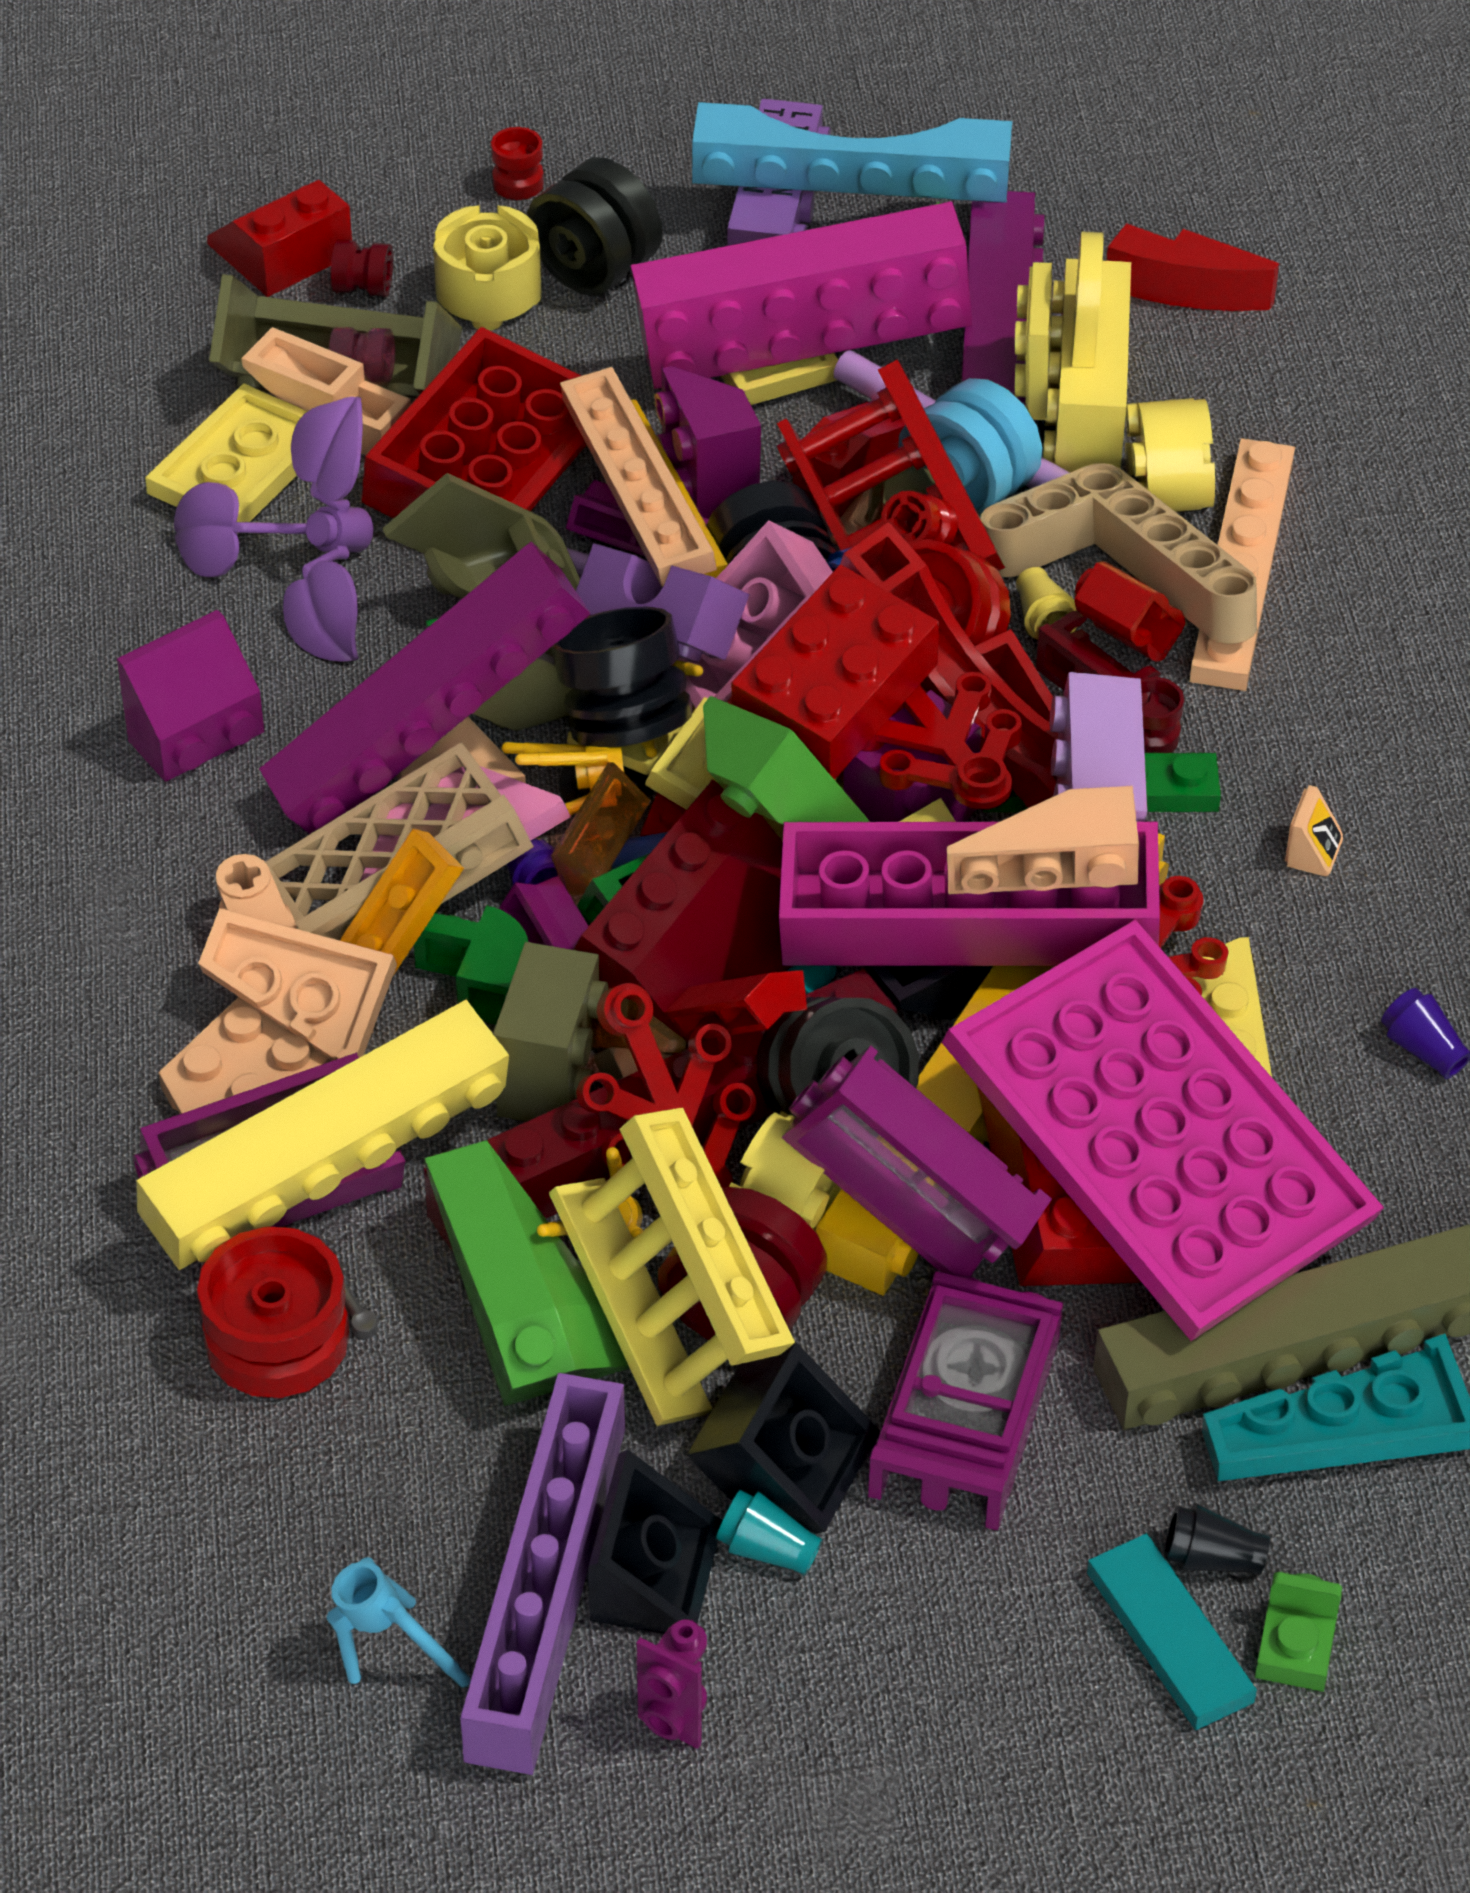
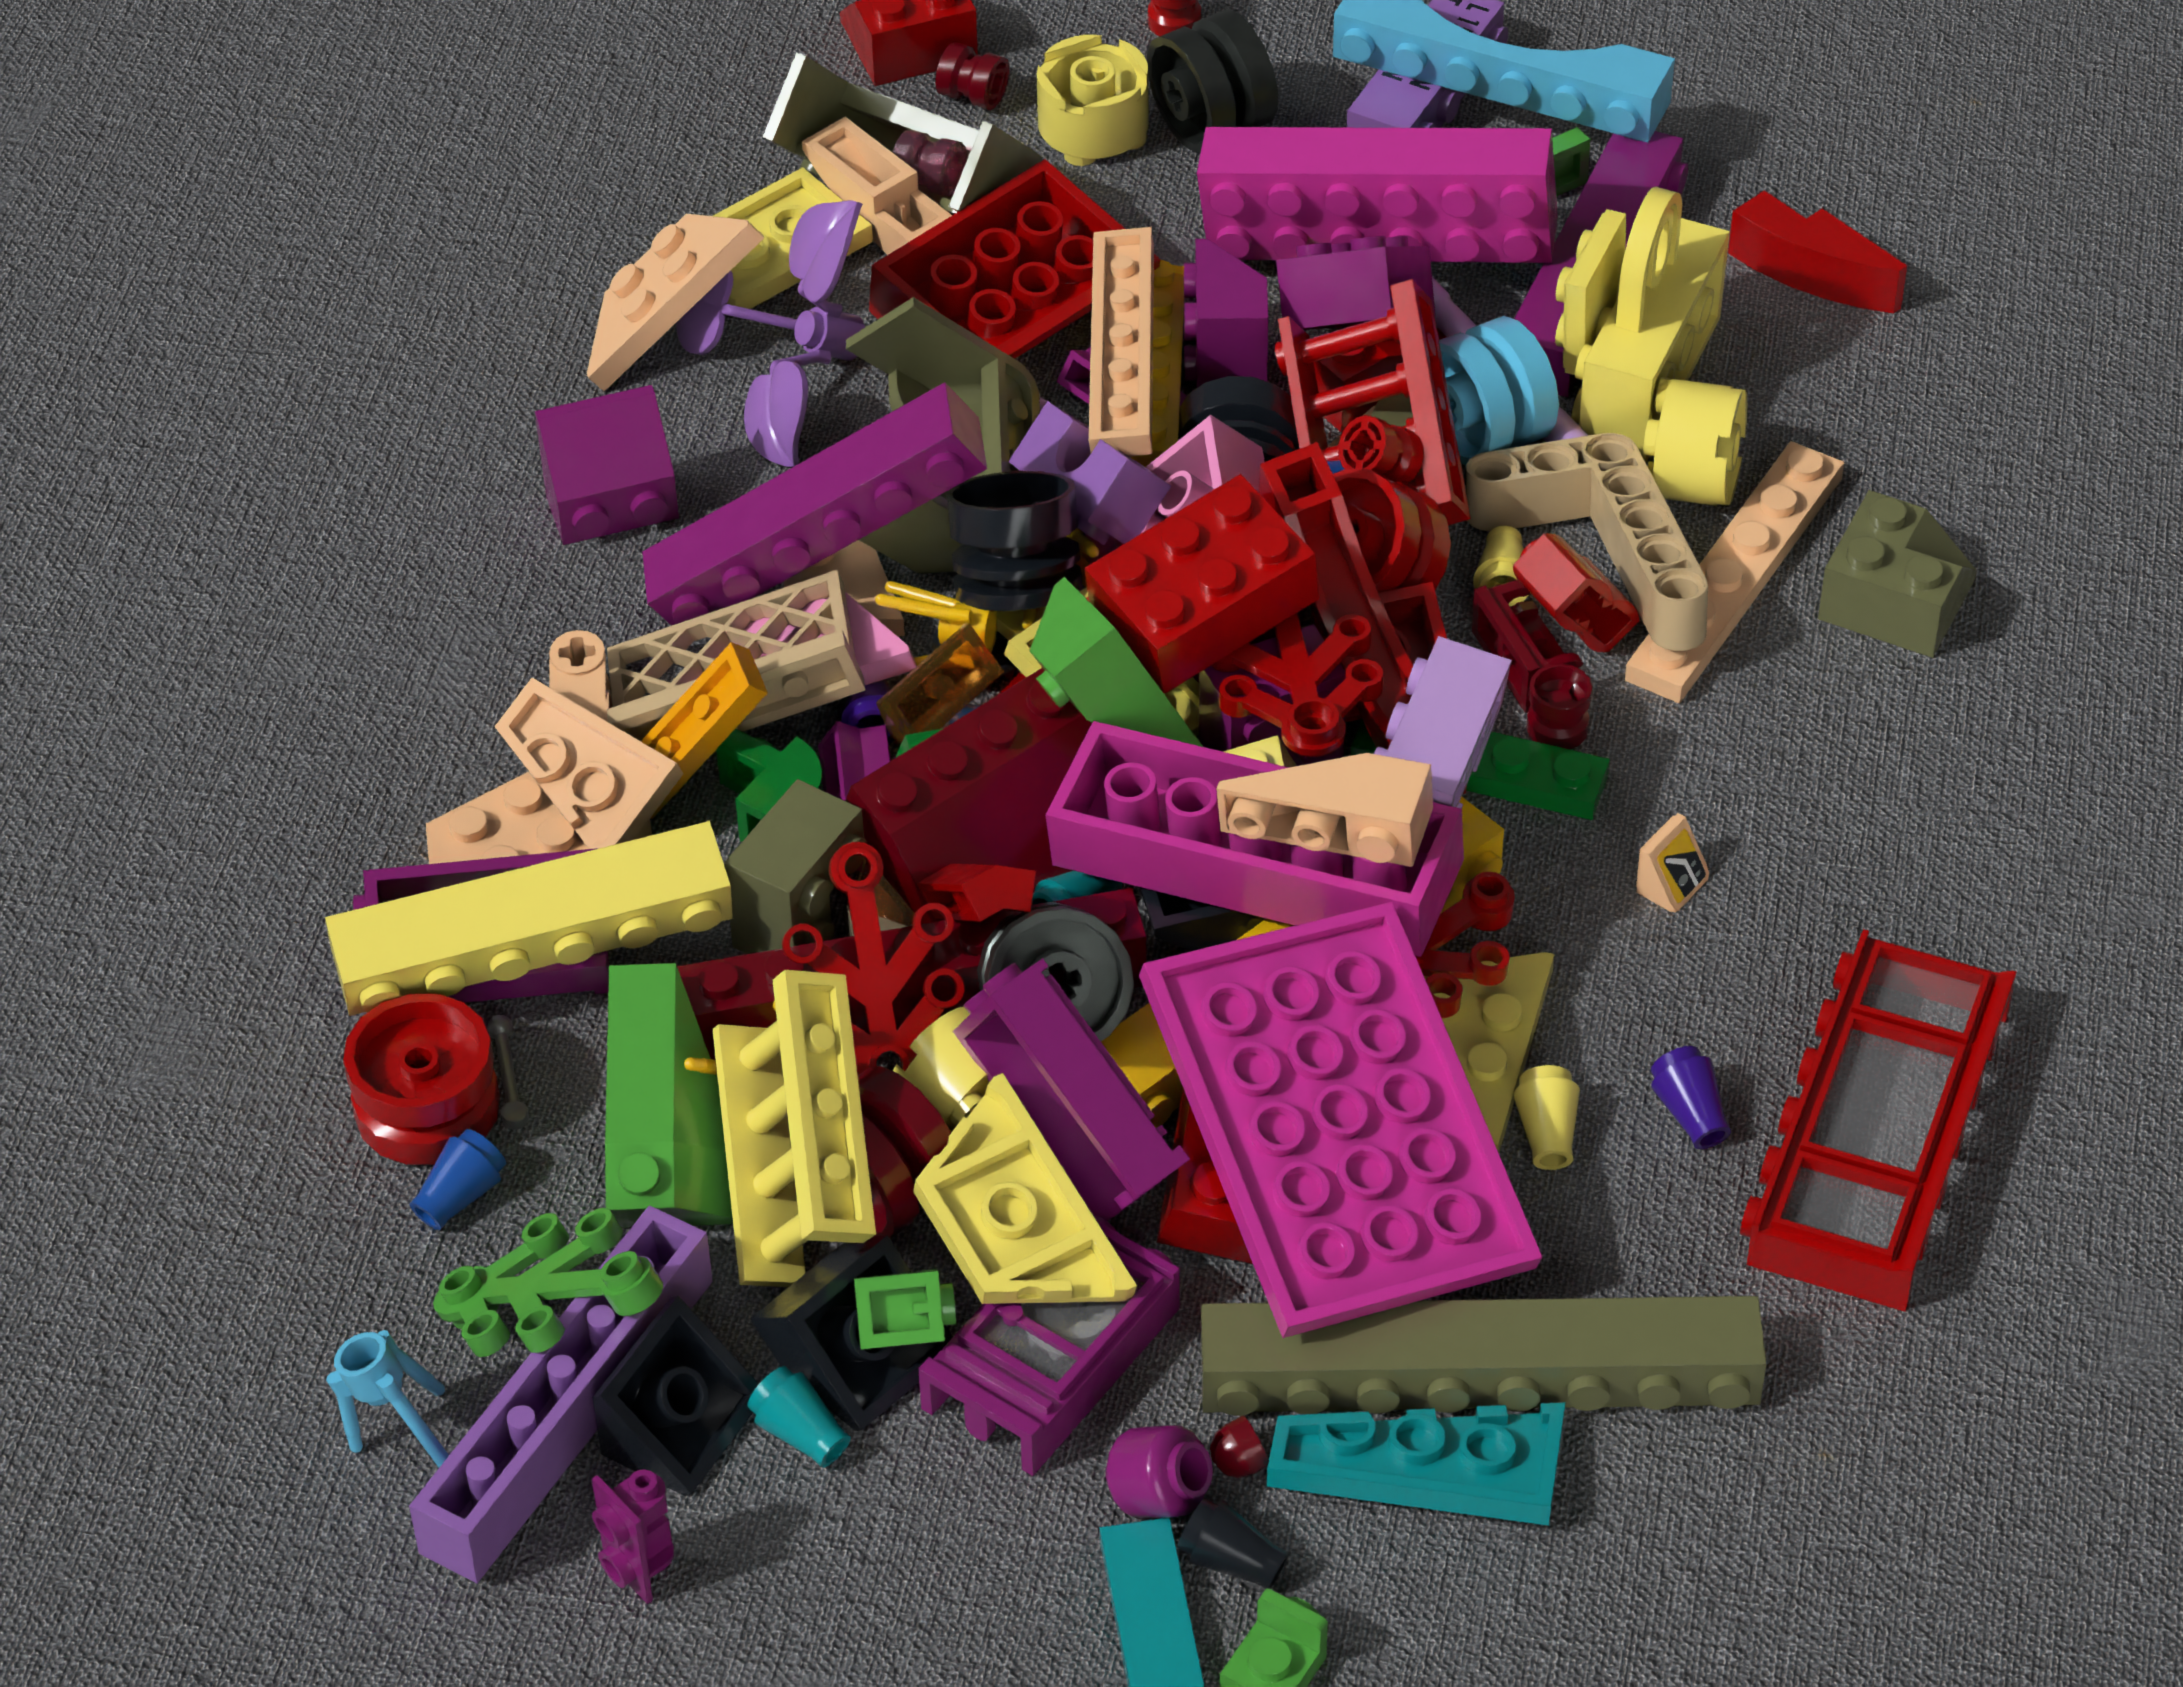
camera: 20 degrees right, 0 degrees up
(170, 519) = (663, 287): none -> light nougat wing
(344, 1394) = (458, 1178): none -> blue cone
(410, 1501) = (473, 1294): none -> bright green plant
(814, 383) = (1349, 281): none -> magenta brick
(837, 1406) = (903, 1309): none -> bright green bracket
(904, 1289) = (1016, 1213): none -> light yellow wing
(1123, 1494) = (1158, 1471): none -> magenta head
(1179, 1453) = (1238, 1449): none -> dark red hinge
(1310, 1079) = (1548, 1111): none -> light yellow cone
(1388, 536) = (1895, 576): none -> olive slope

